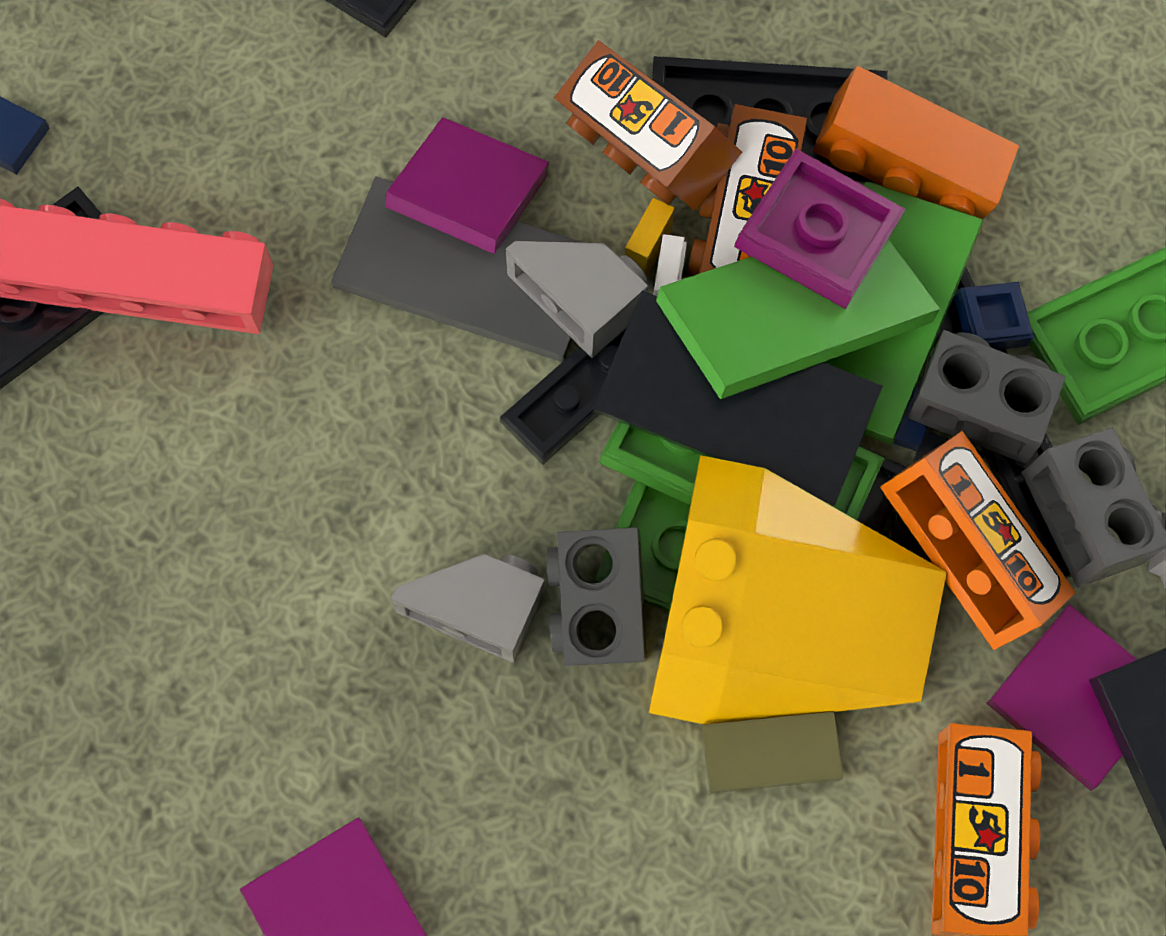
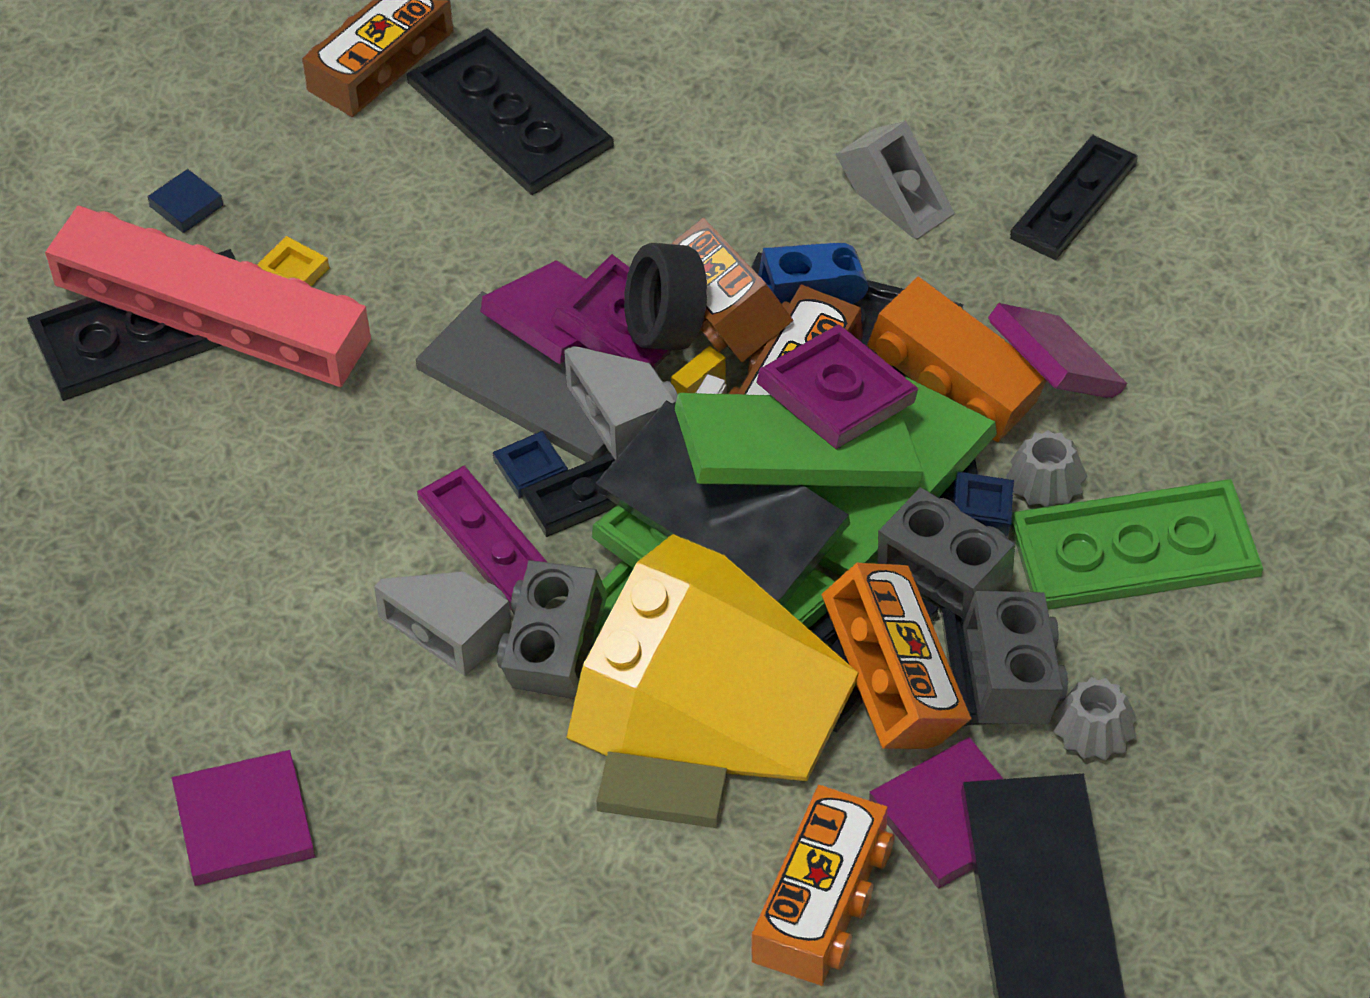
camera: 20 degrees right, 20 degrees down
(153, 193) = (295, 260): none -> yellow tile
(482, 483) = (480, 529): none -> magenta tile
(497, 379) = (528, 461): none -> dark blue tile
(544, 179) = (597, 315): none -> magenta tile
(622, 149) = (665, 296): none -> black tyre
(740, 75) = (823, 267): none -> blue leg
(1011, 113) = (1056, 351): none -> magenta tile
(1042, 257) = (1047, 470): none -> light grey piece

